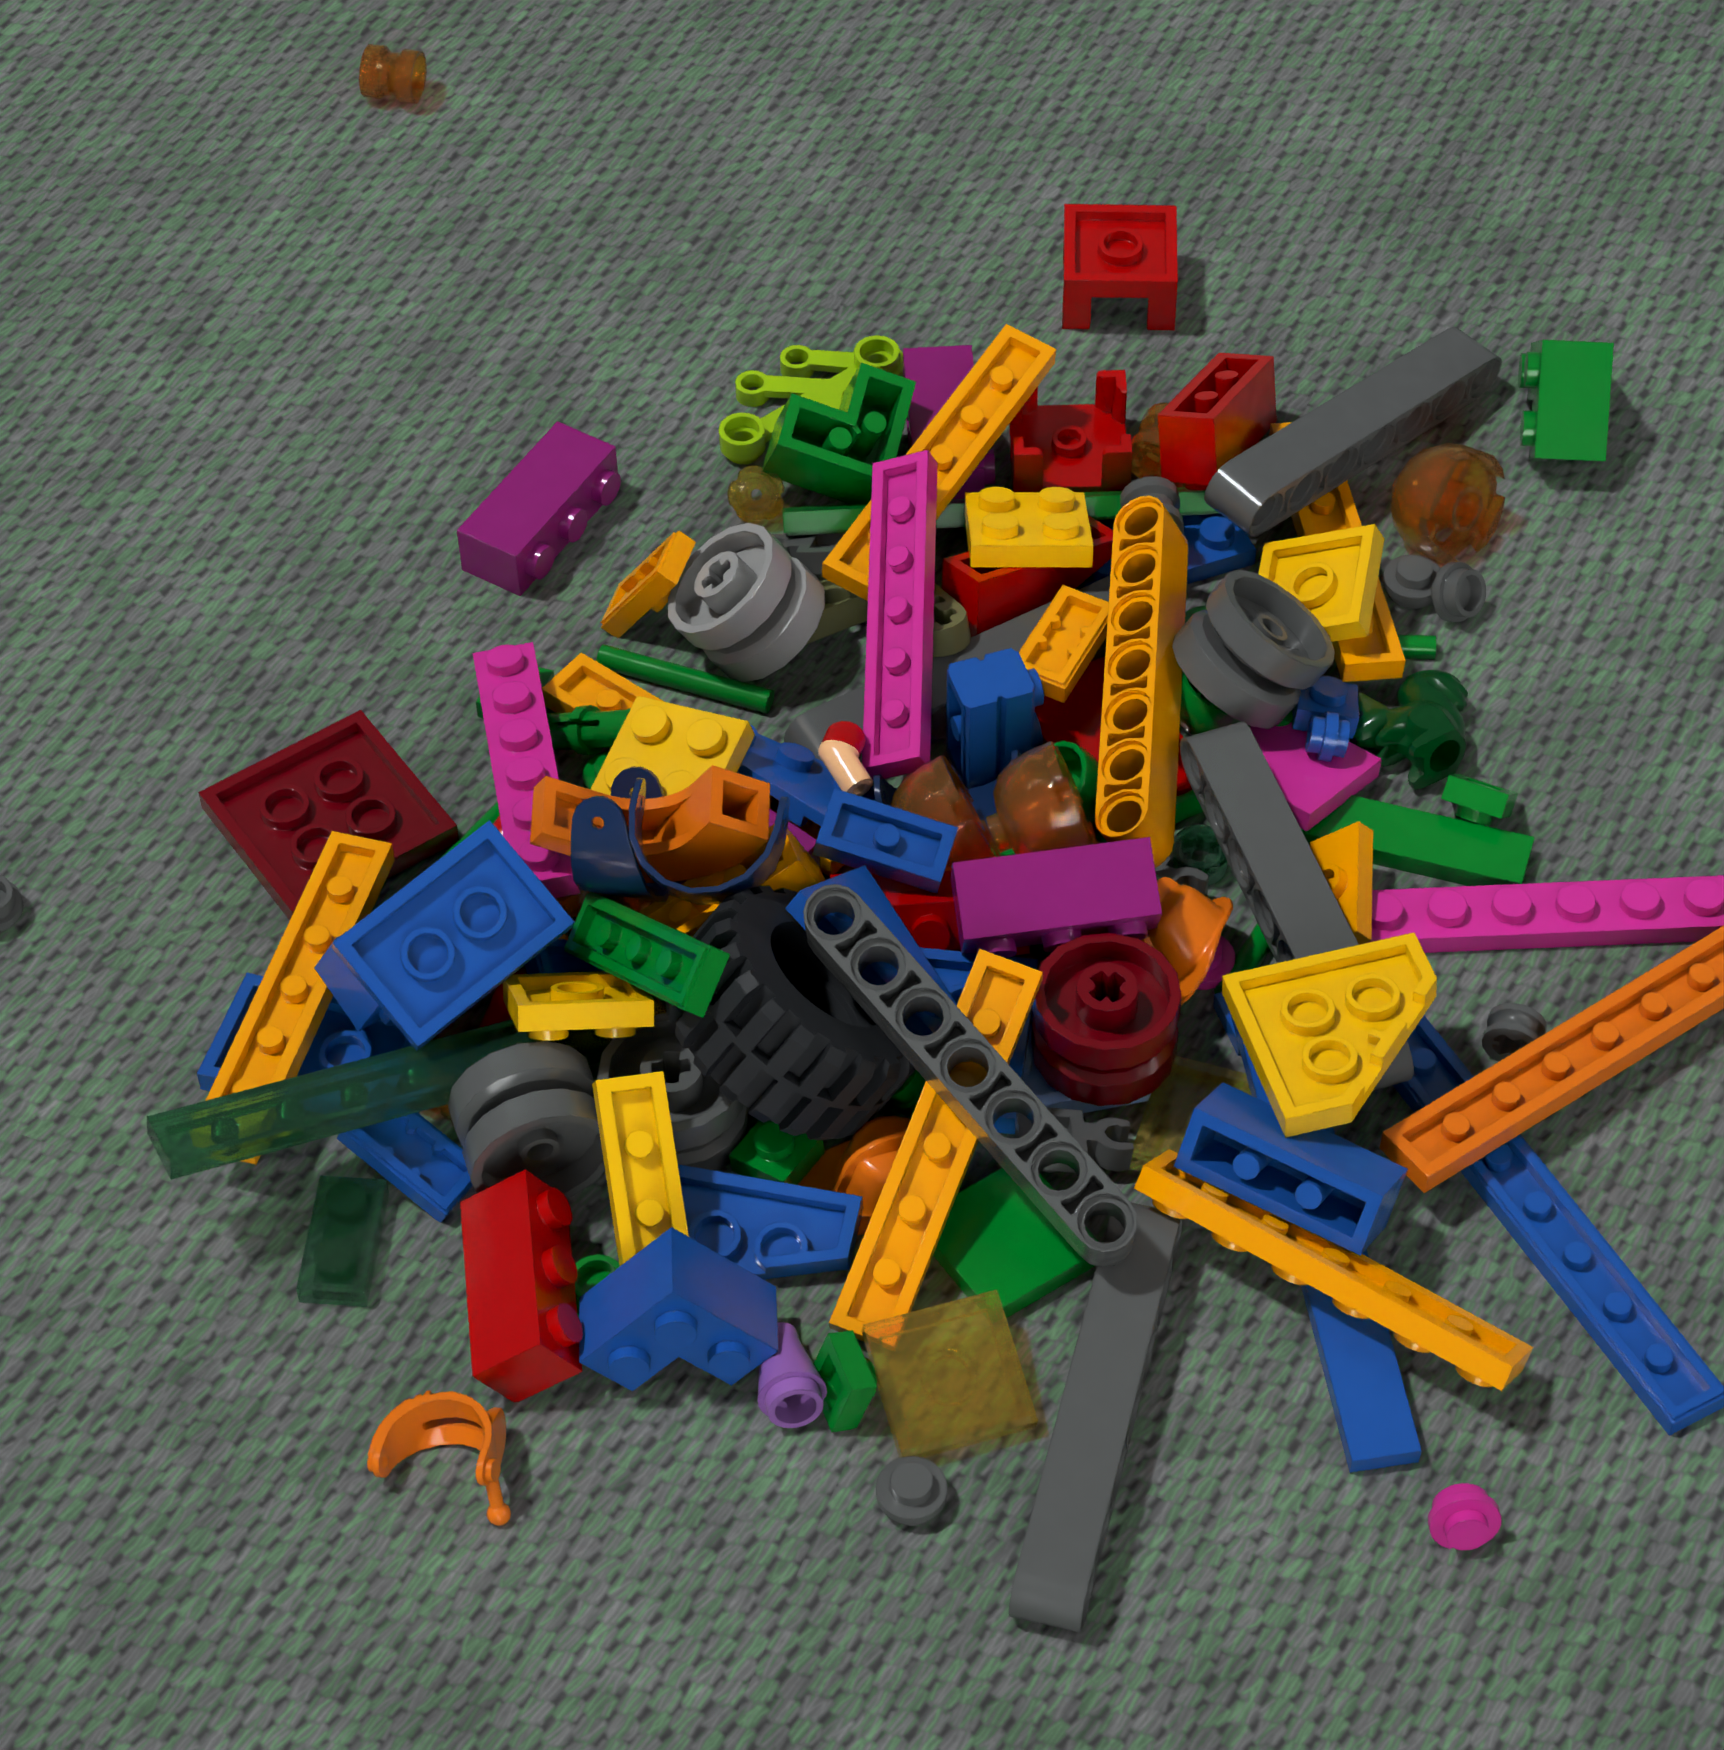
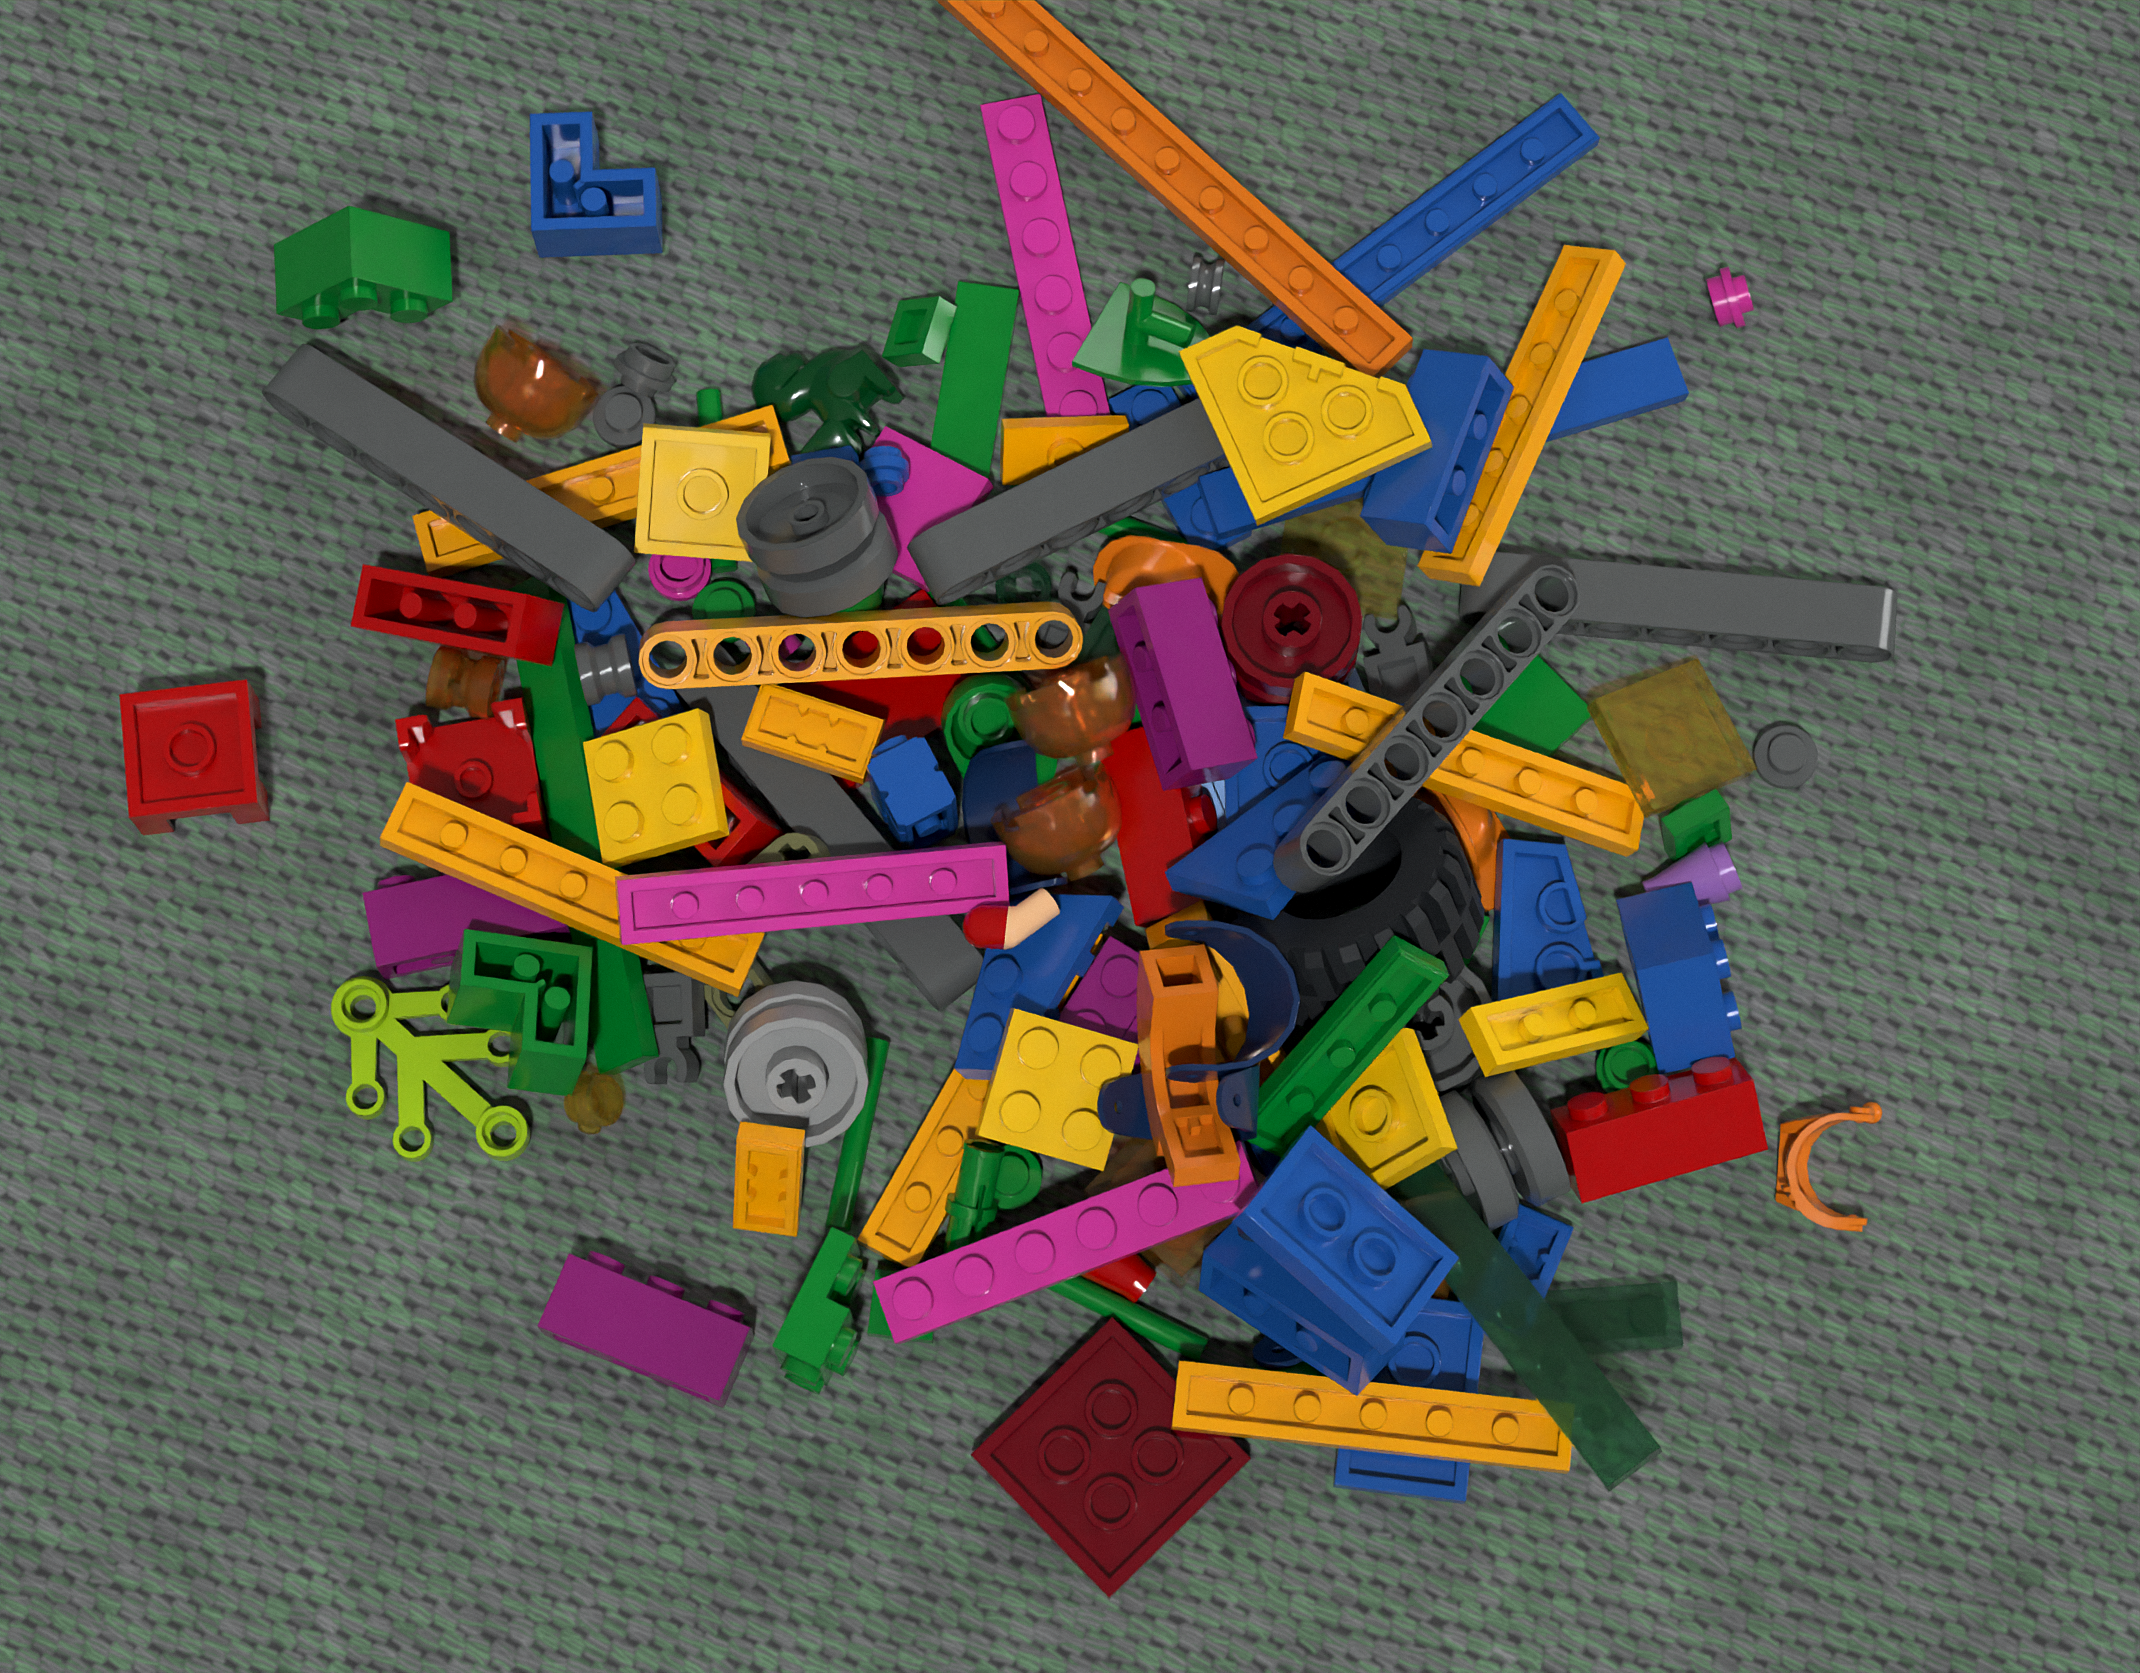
camera: 100 degrees left, 25 degrees up
(513, 601) = (818, 1330): none -> green plate
(885, 840) = (1132, 857): blue plate -> none
(1467, 969) = (1139, 339): none -> green shield
(1642, 545) = (587, 208): none -> blue brick

